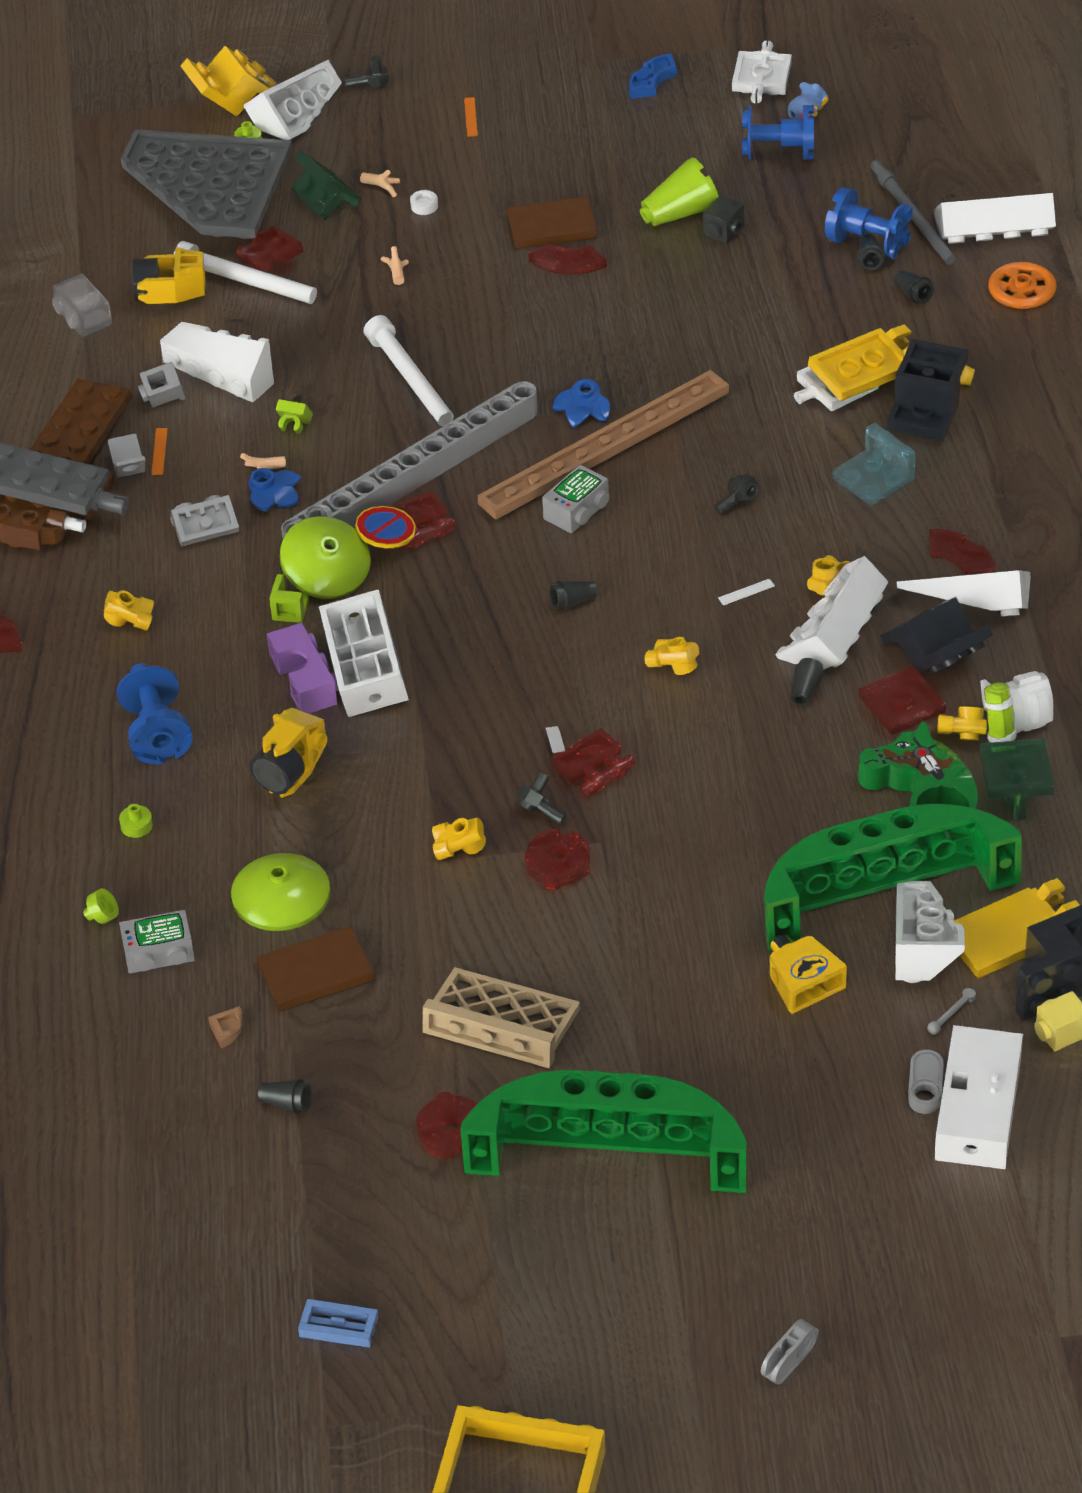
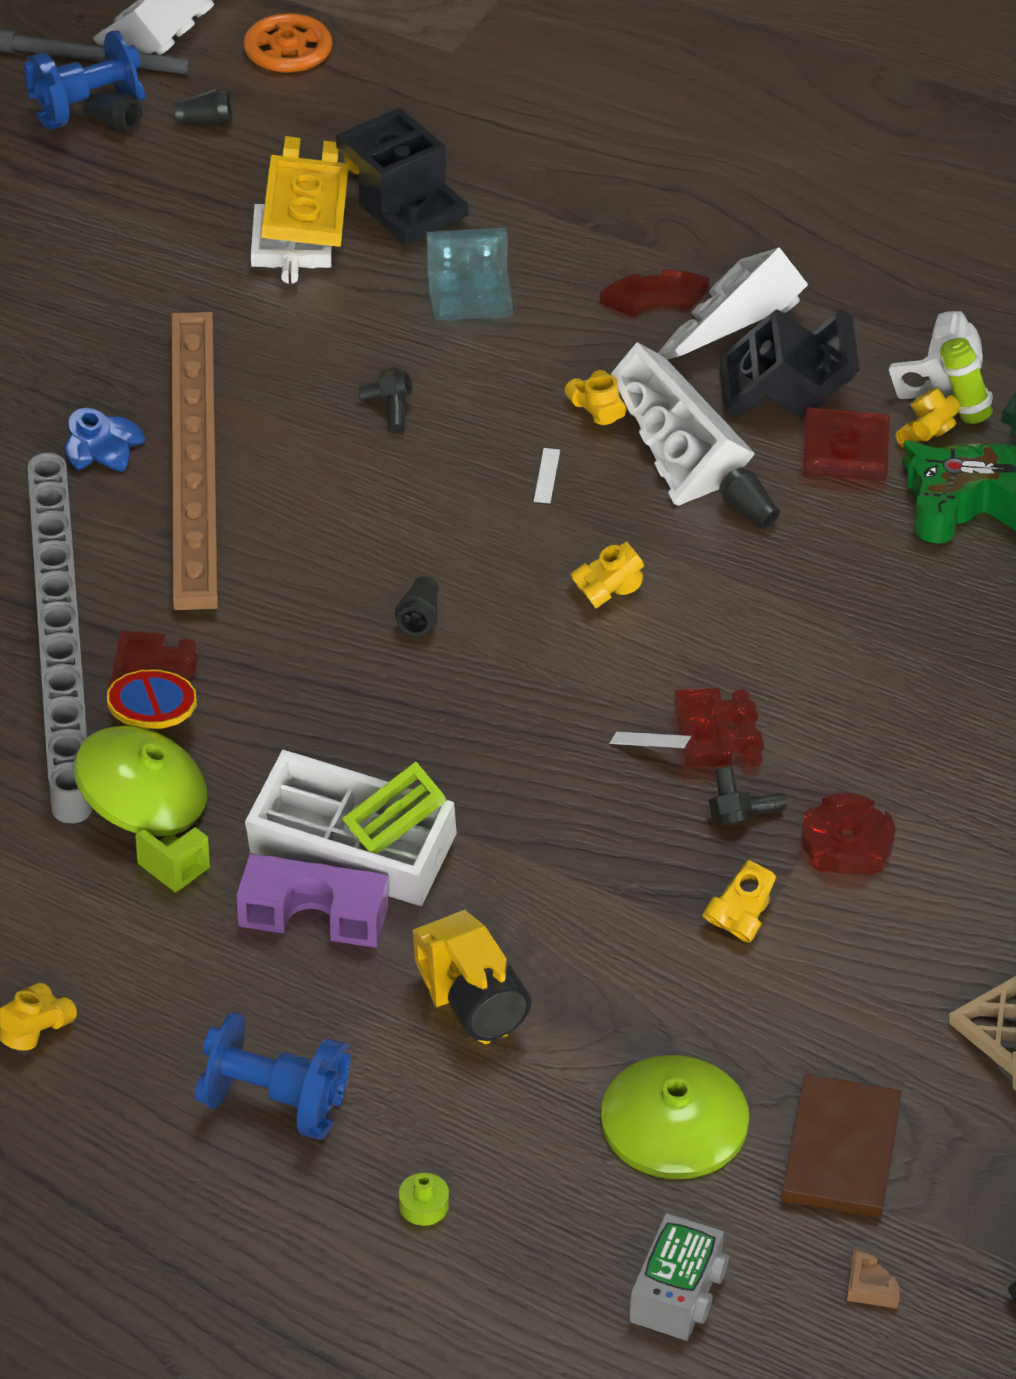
camera: 60 degrees left, 0 degrees up
(101, 906) = (561, 1306): lime tile -> none
(371, 659) = (404, 823): none -> lime tile
(575, 499) = (267, 522): light grey brick -> none

